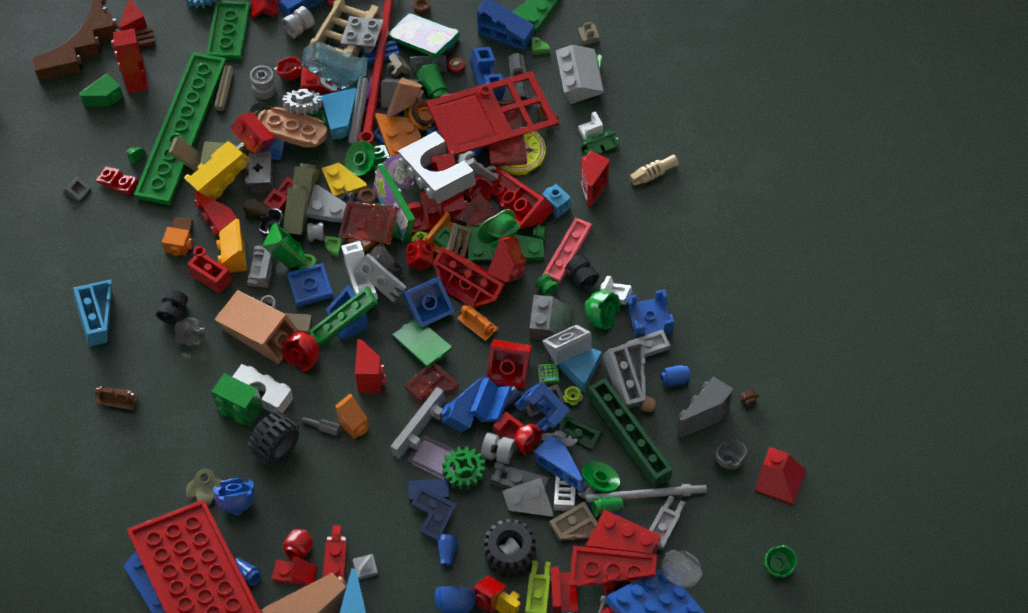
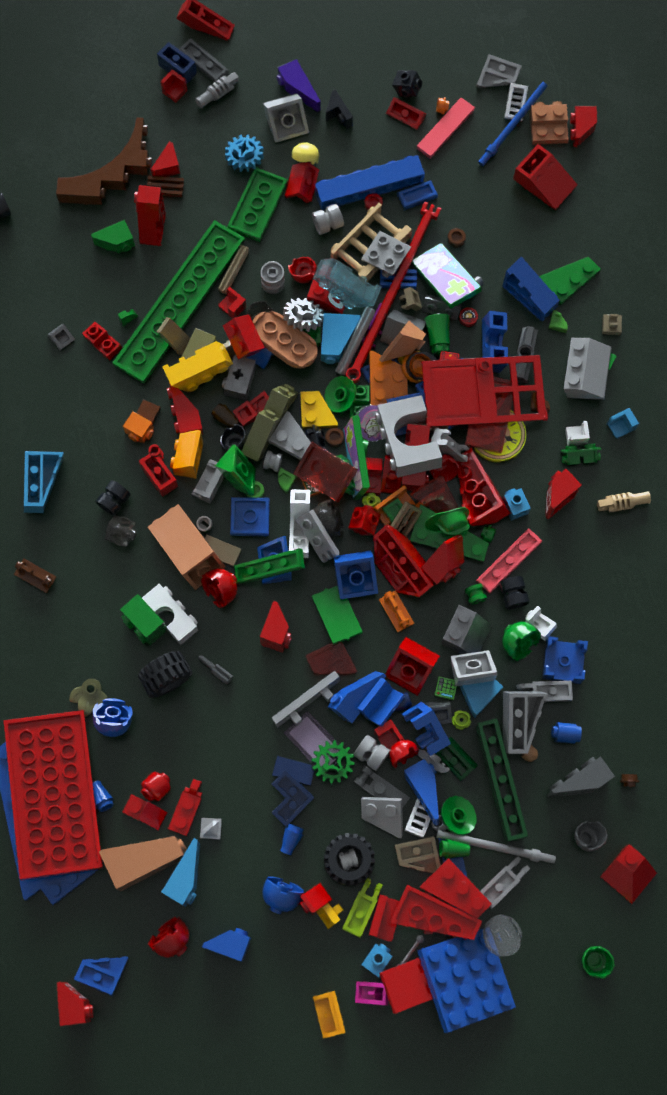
camera: 15 degrees right, 15 degrees up
(232, 111) = (233, 303): none -> red panel
(351, 417) = (245, 675): orange slope -> none
(628, 107) = (622, 423): none -> dark azure panel

